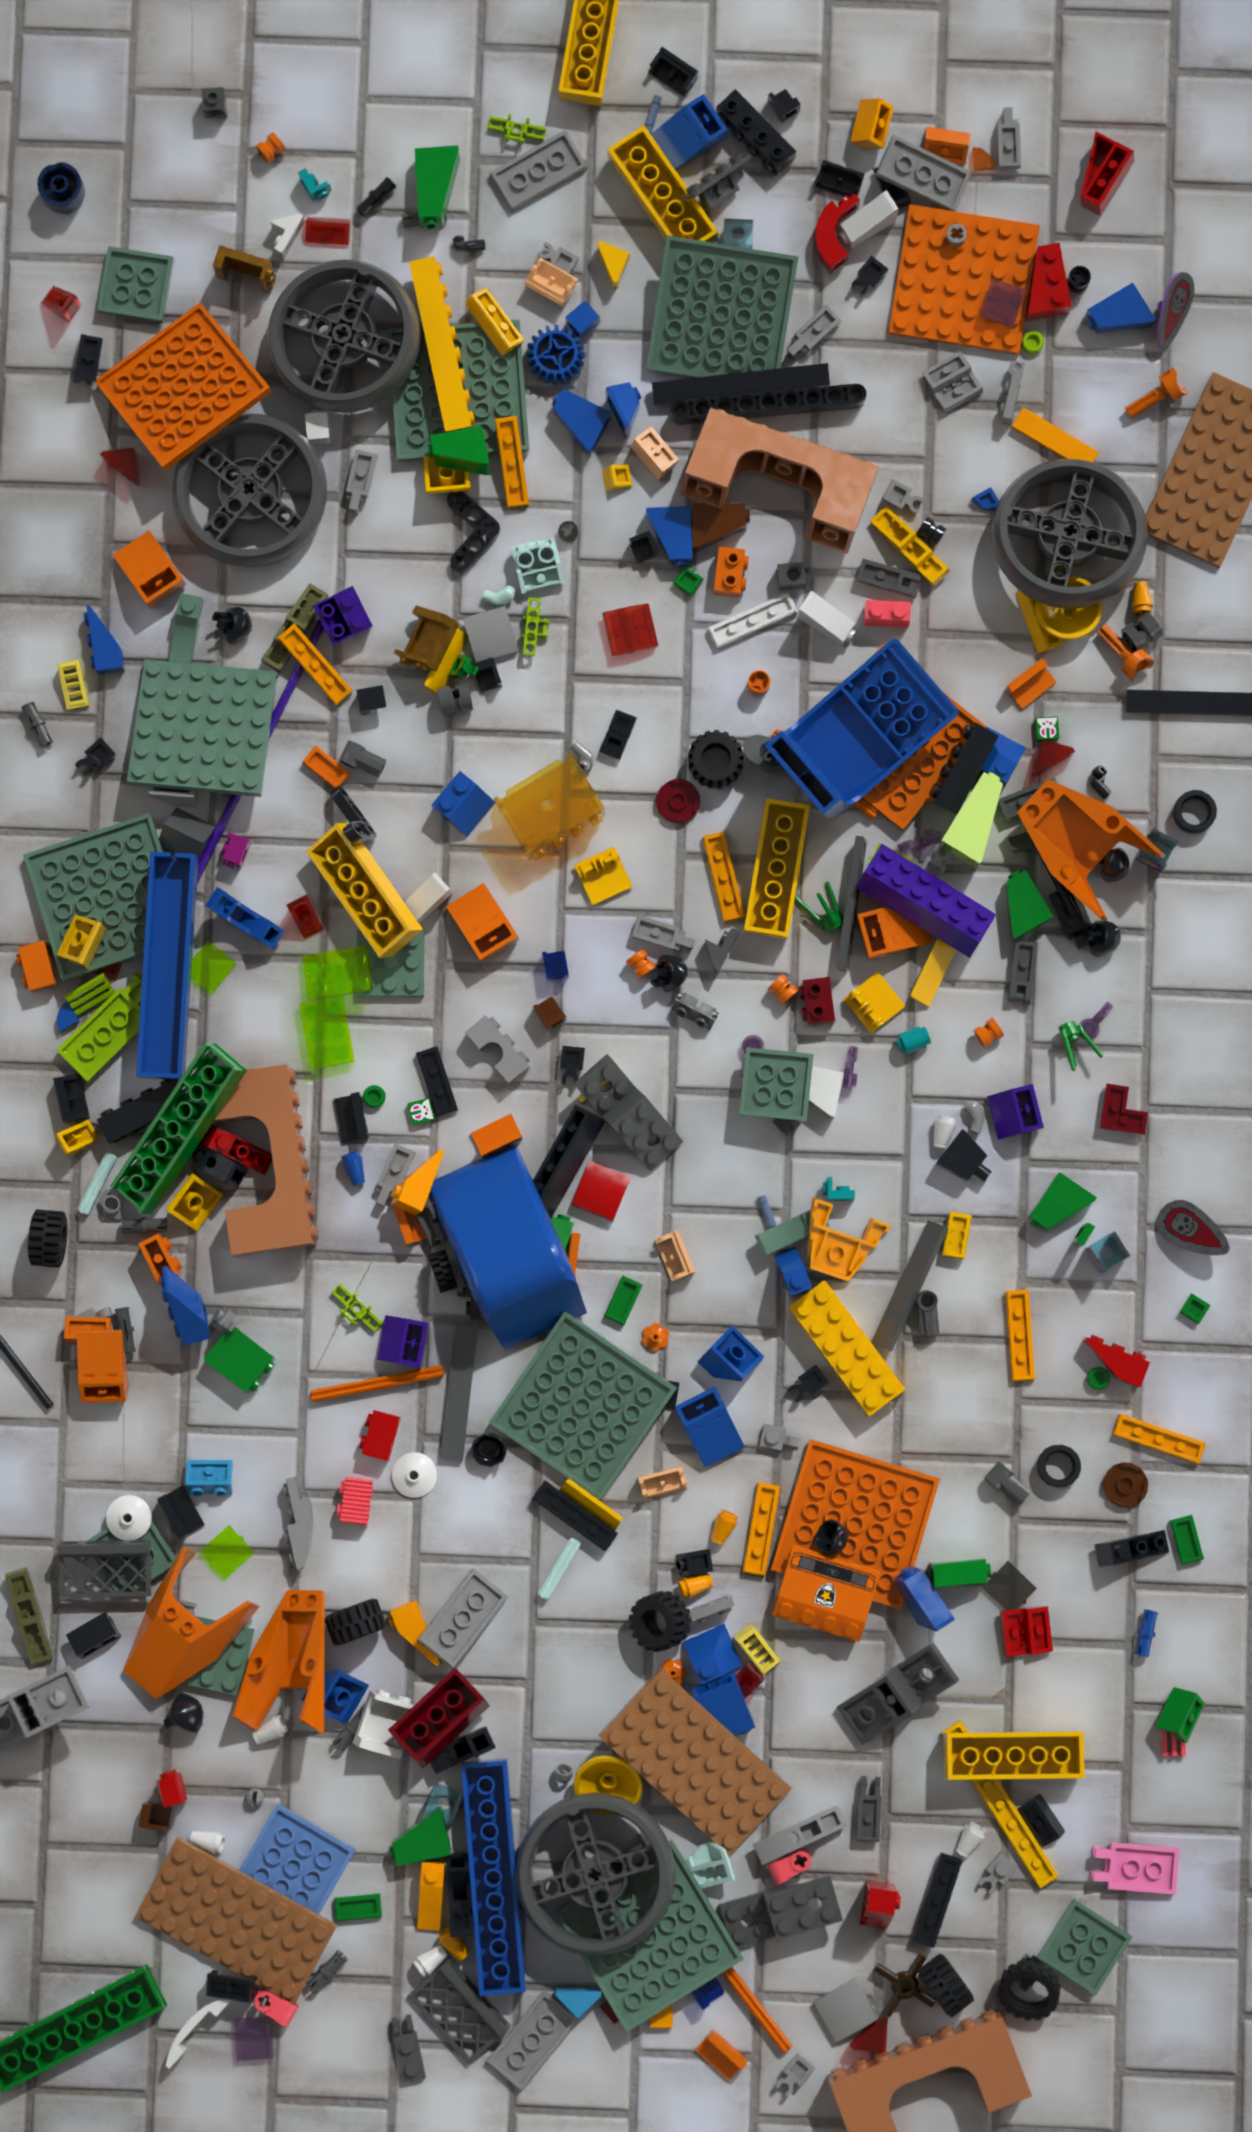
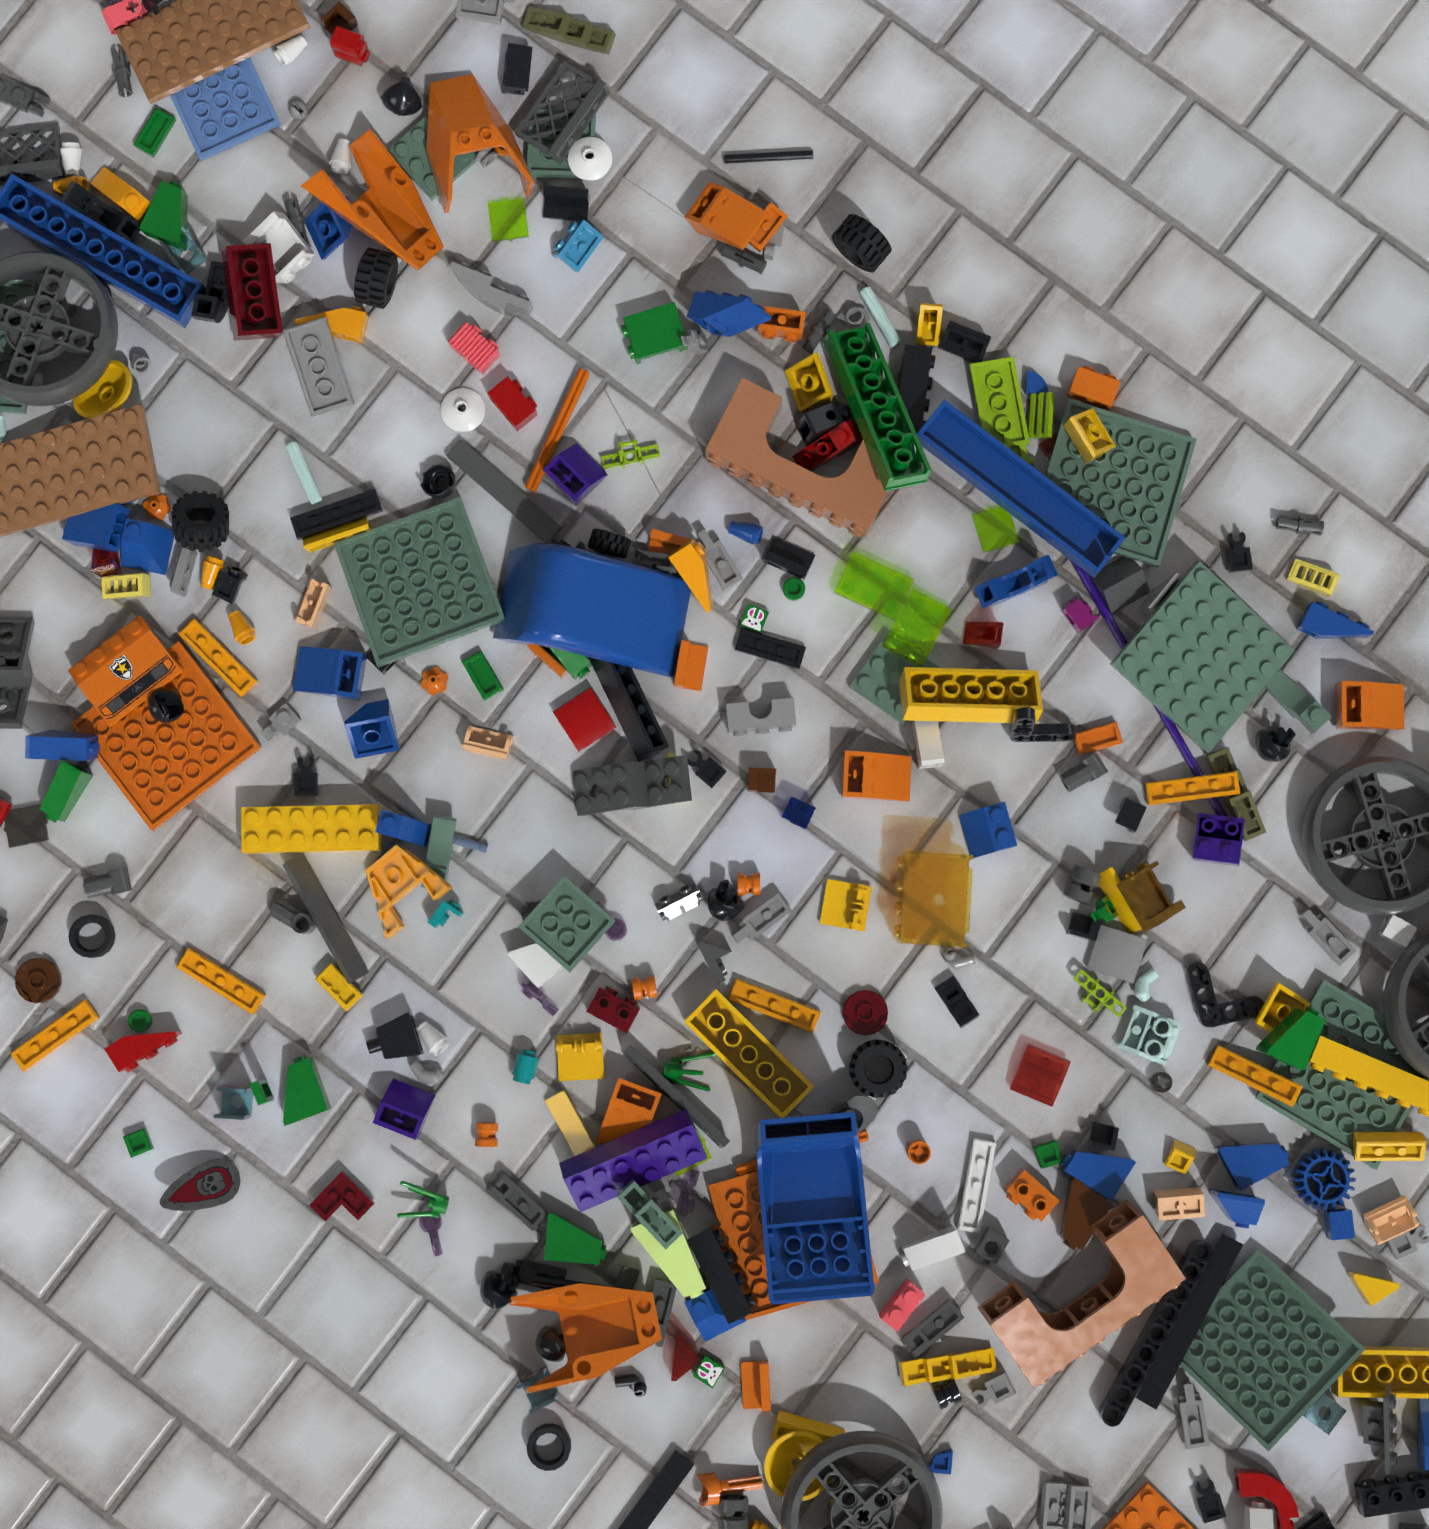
camera: 125 degrees right, 0 degrees up
(958, 856) = (649, 1214): none -> sand green slope

